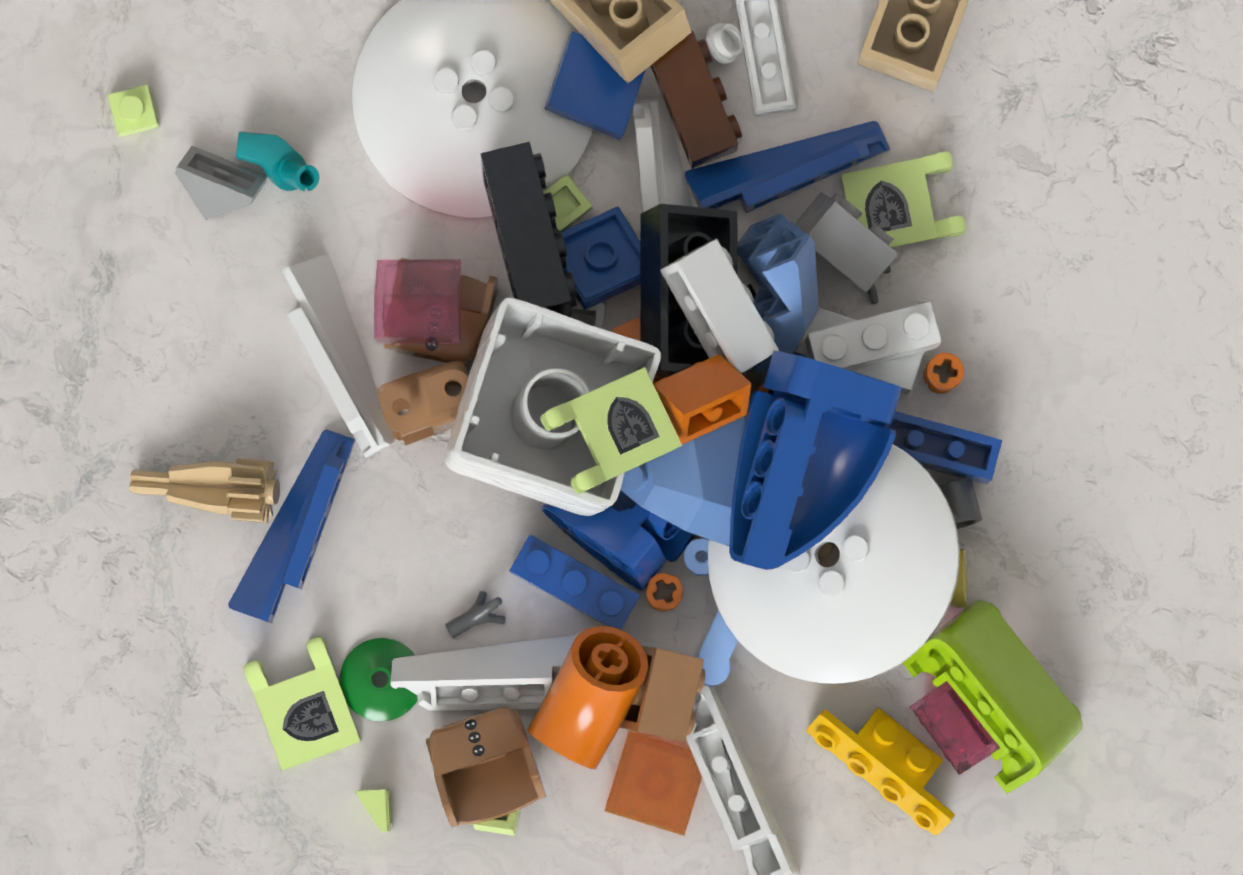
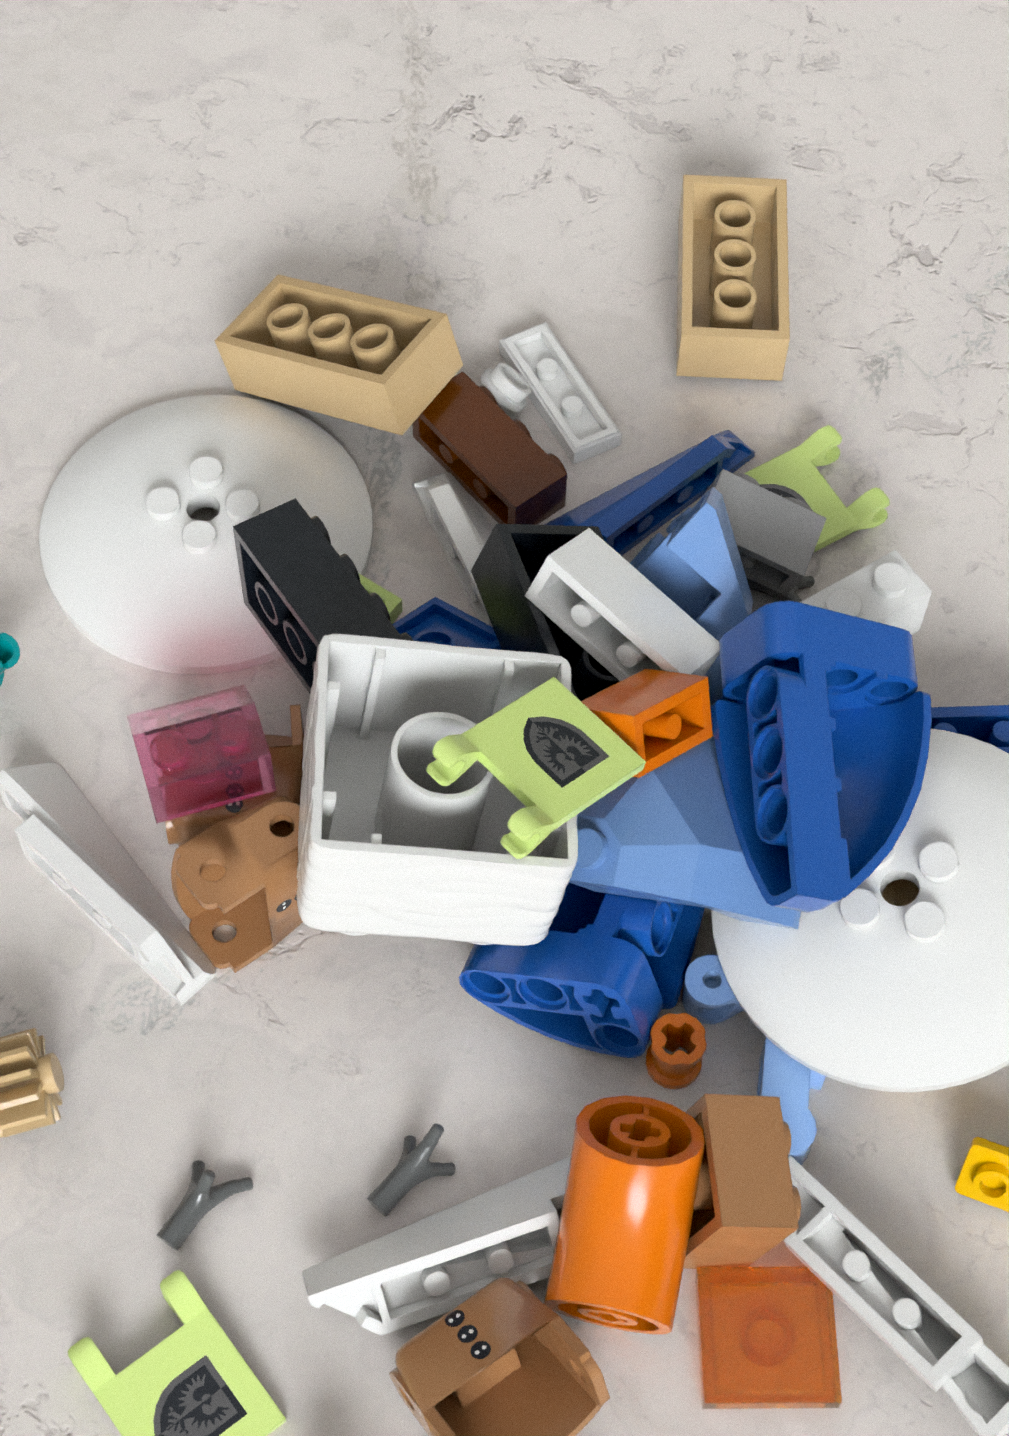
camera: 20 degrees left, 25 degrees down
(296, 530) = (101, 1141): blue wedge -> none
(343, 594) = (197, 1202): none -> dark grey bar
(358, 686) = (280, 1346): green dish -> none
(574, 583) = (533, 1070): blue brick -> none
(591, 90) = (360, 469): blue tile -> none
(954, 367) = (938, 666): orange bush -> none

